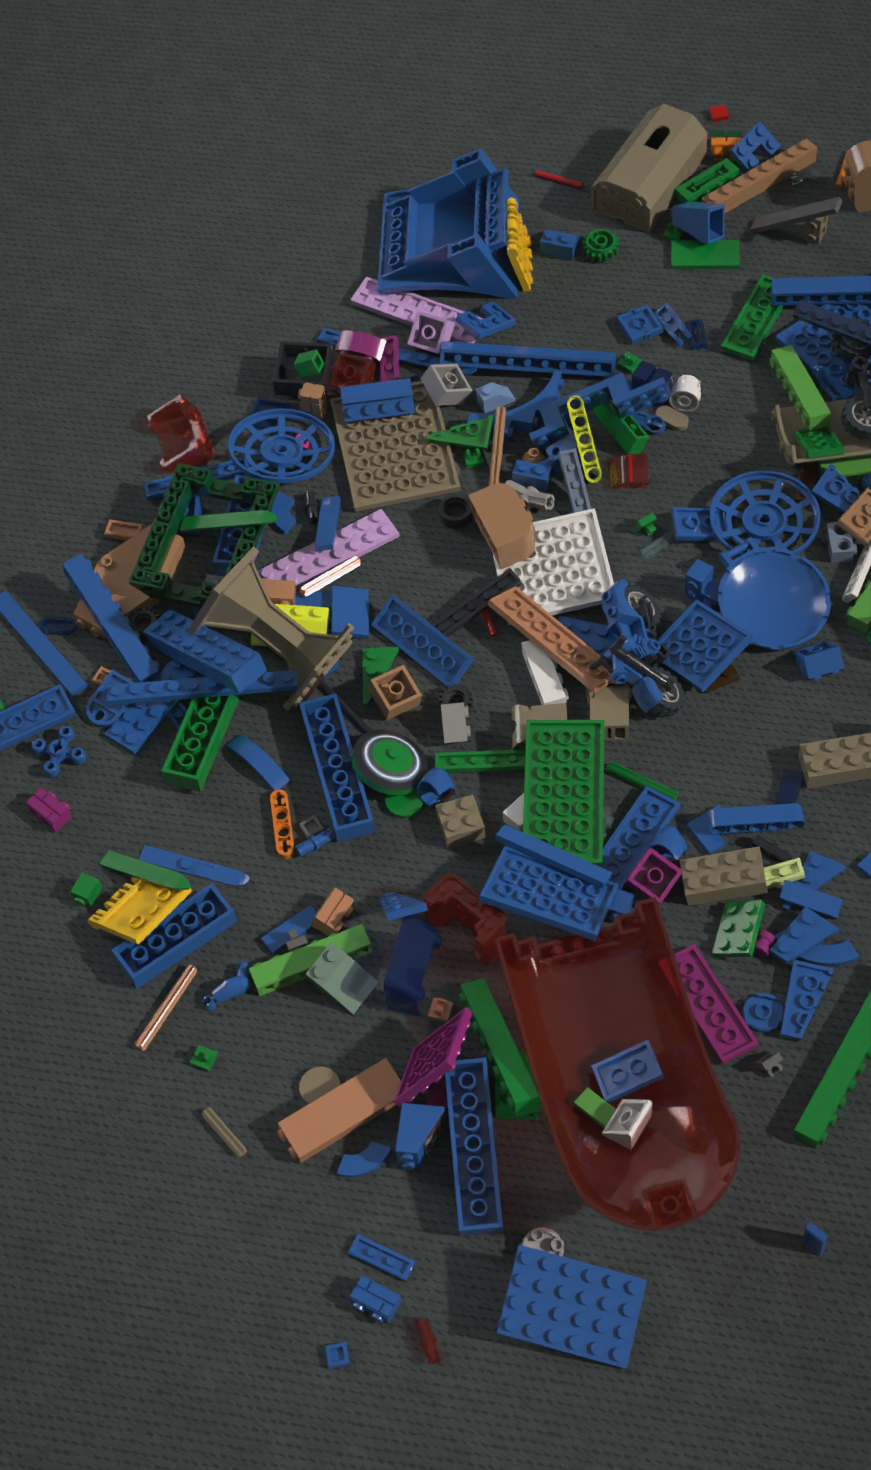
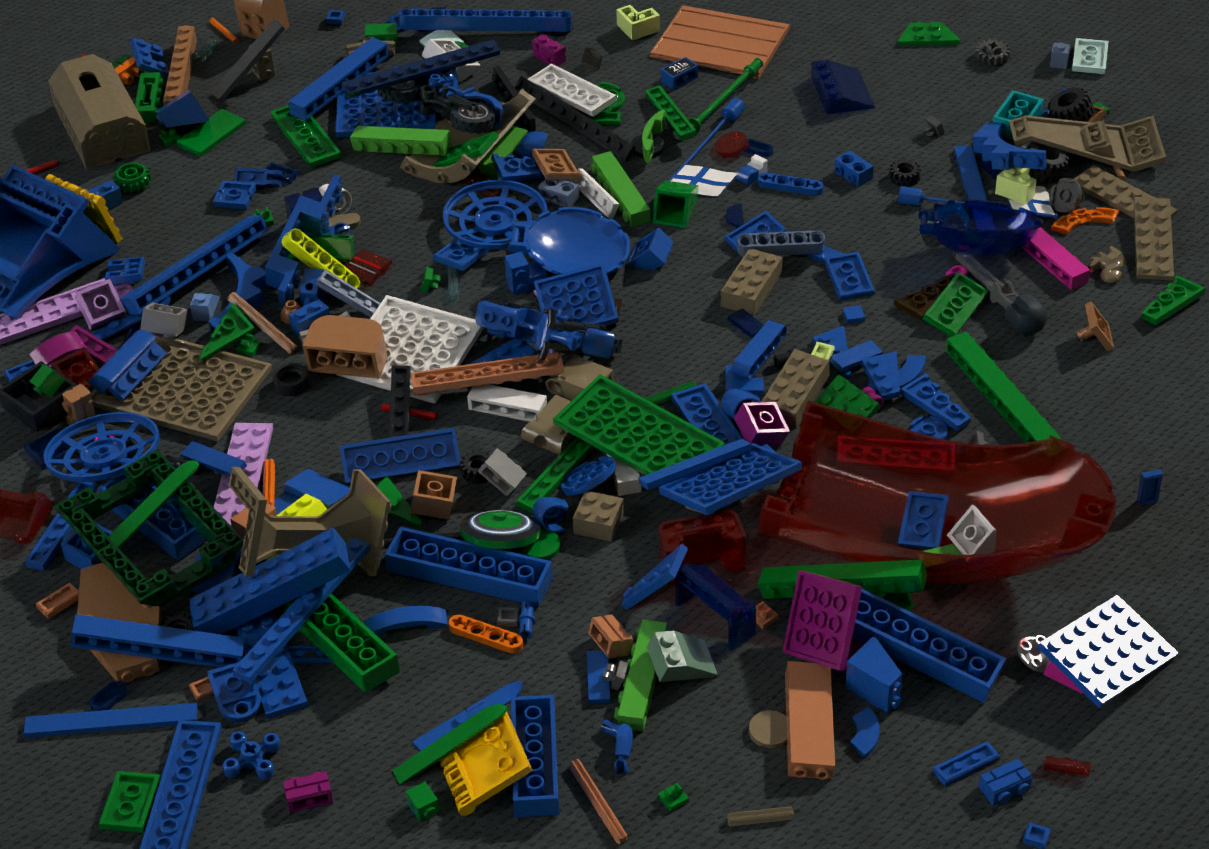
camera: 60 degrees left, 15 degrees down
(495, 786) = (588, 475): none -> blue tile

